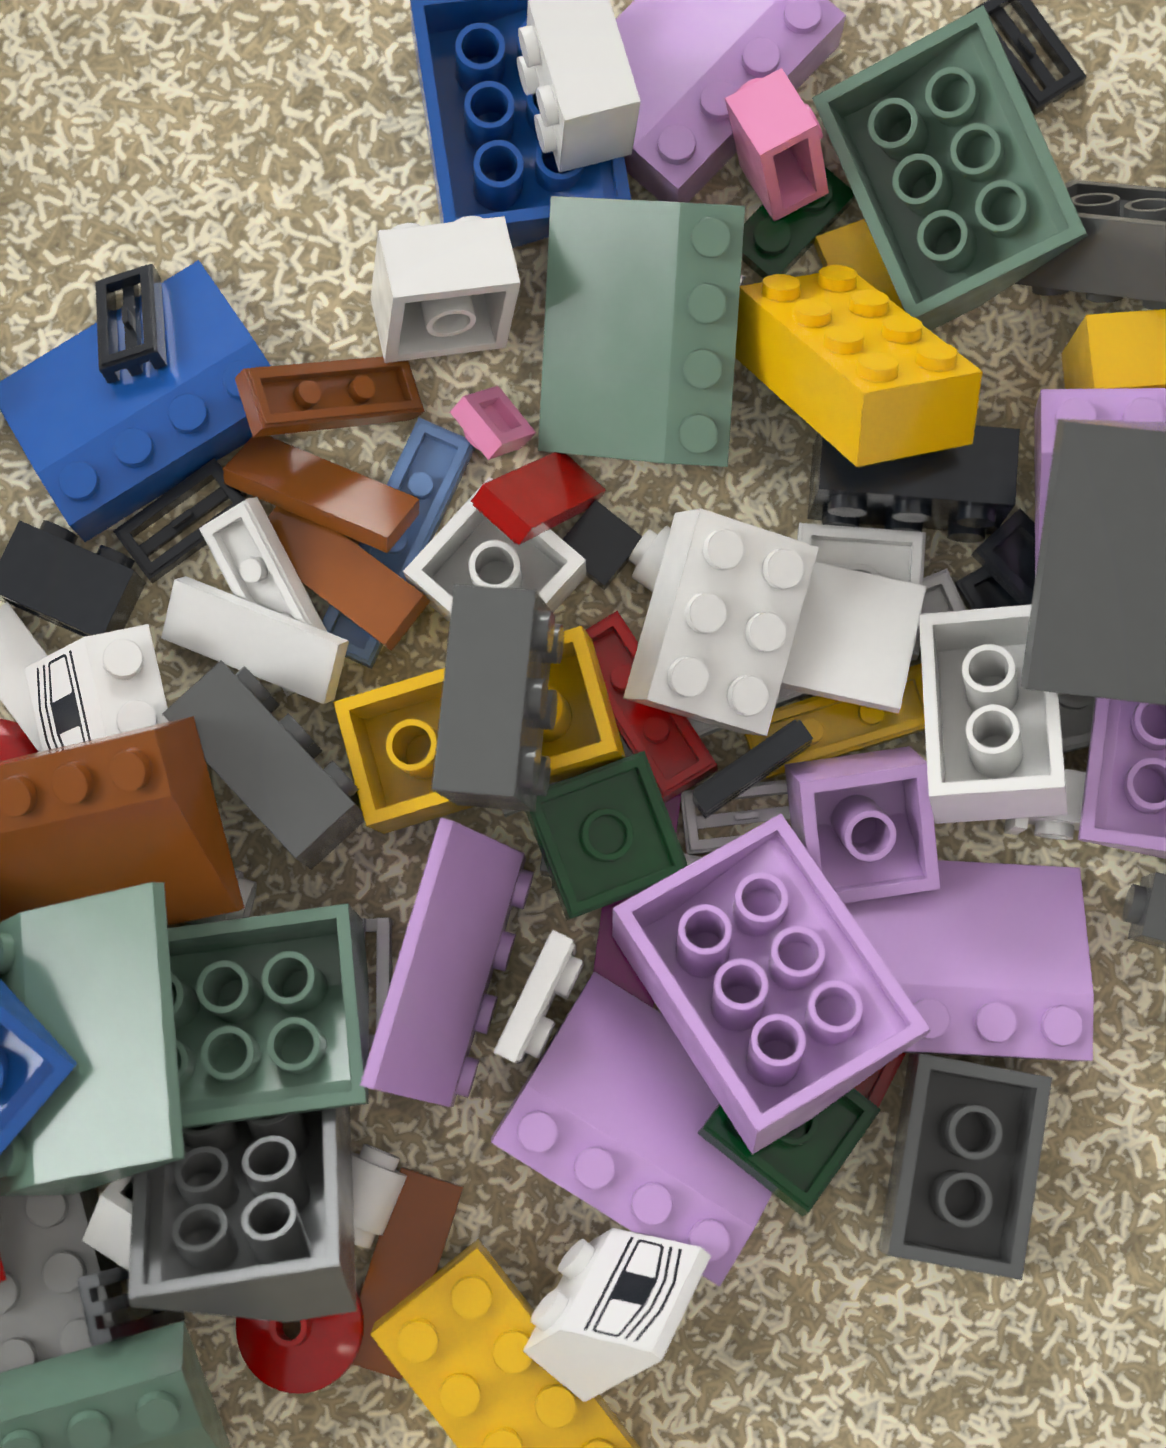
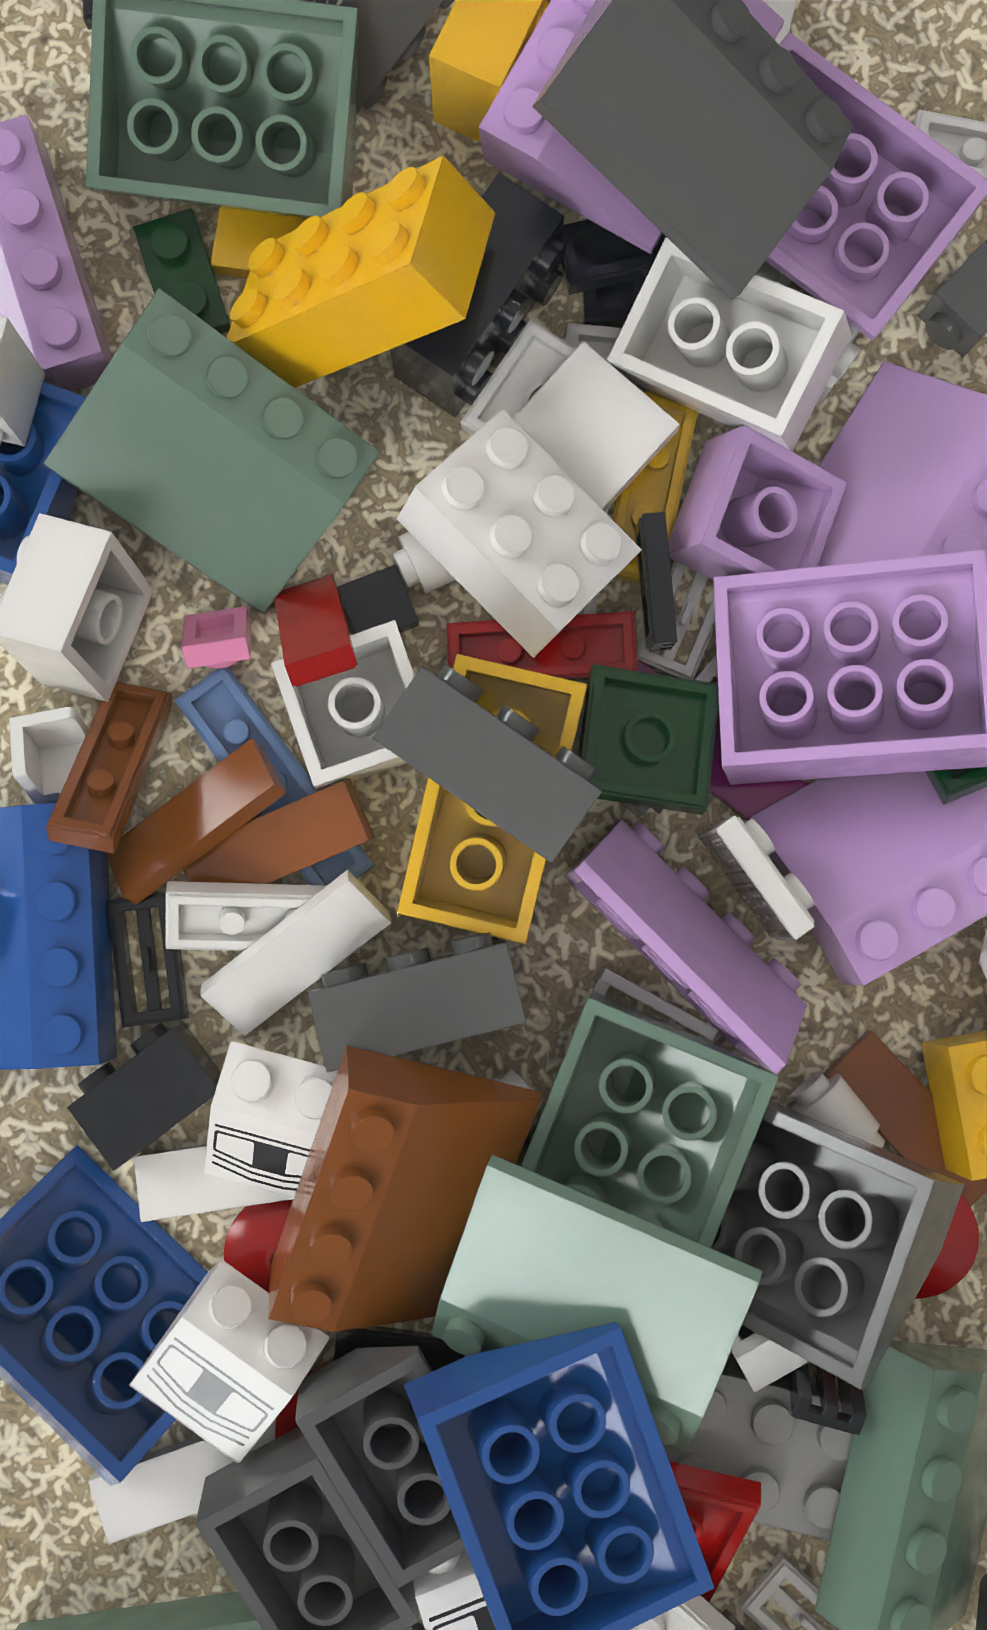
camera: 65 degrees left, 5 degrees up
(312, 333) = (45, 751): none -> white panel
(777, 143) = (111, 236): bright pink brick -> none

